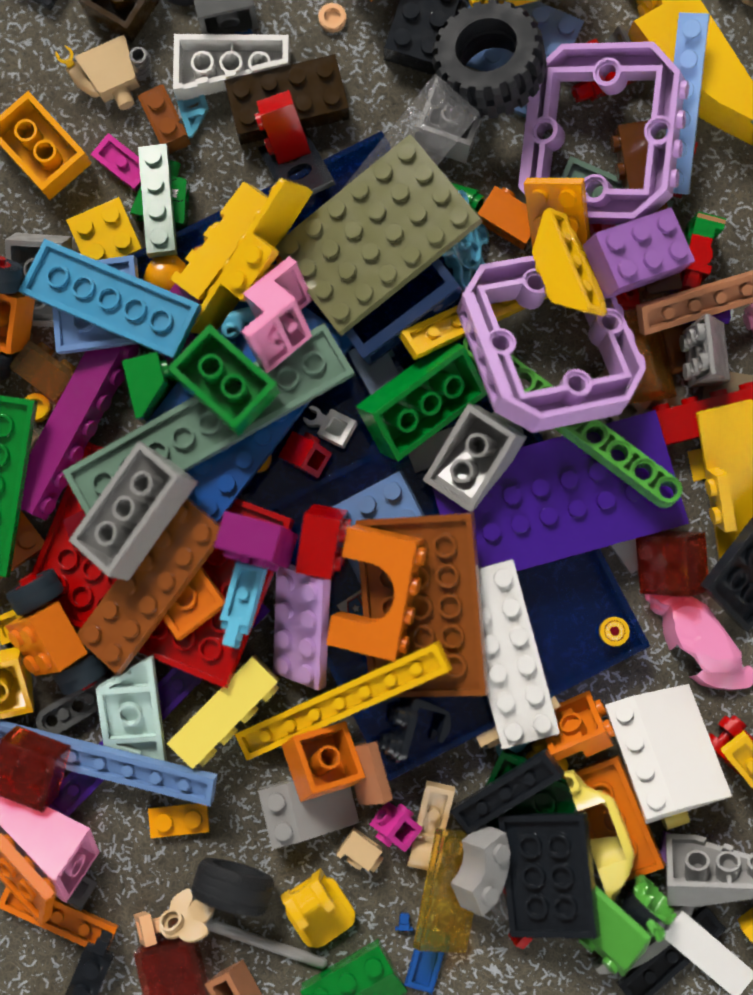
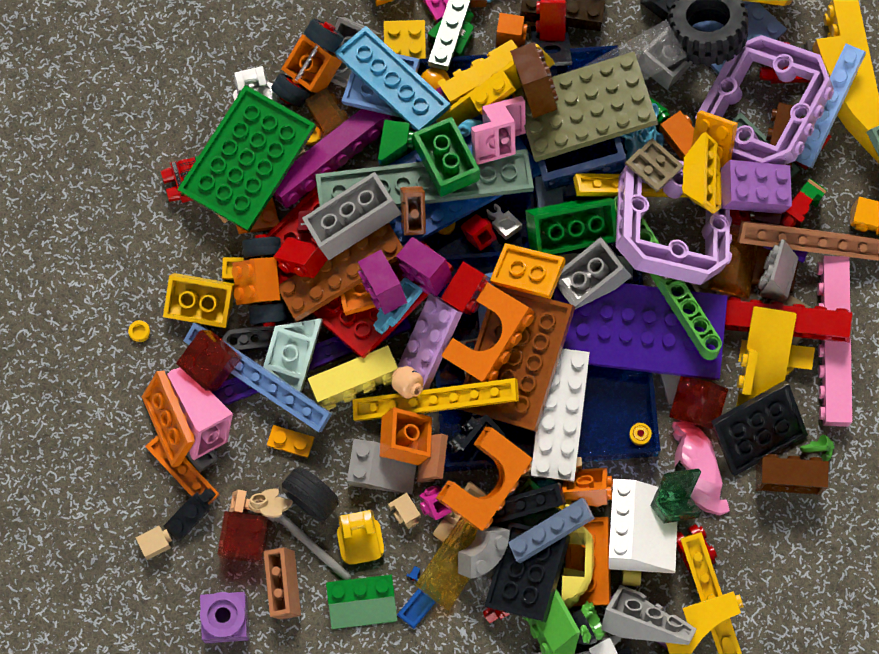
camera: 25 degrees right, 10 degrees down
(89, 591) = (300, 258): none -> red brick
(210, 472) = (413, 210): none -> dark orange brick
(210, 588) = (381, 282): none -> magenta brick
(235, 166) = (510, 28): none -> orange brick
(296, 694) = (407, 382): none -> light nougat head
(298, 227) = (535, 79): none -> reddish brown brick
(392, 487) = (527, 271): none -> light orange plate
(457, 823) = (511, 464): none -> orange arch
(498, 278) = (654, 165): none -> dark tan slope
(560, 816) = (551, 530): none -> sand blue plate
(693, 703) = (673, 498): none -> clear green bracket

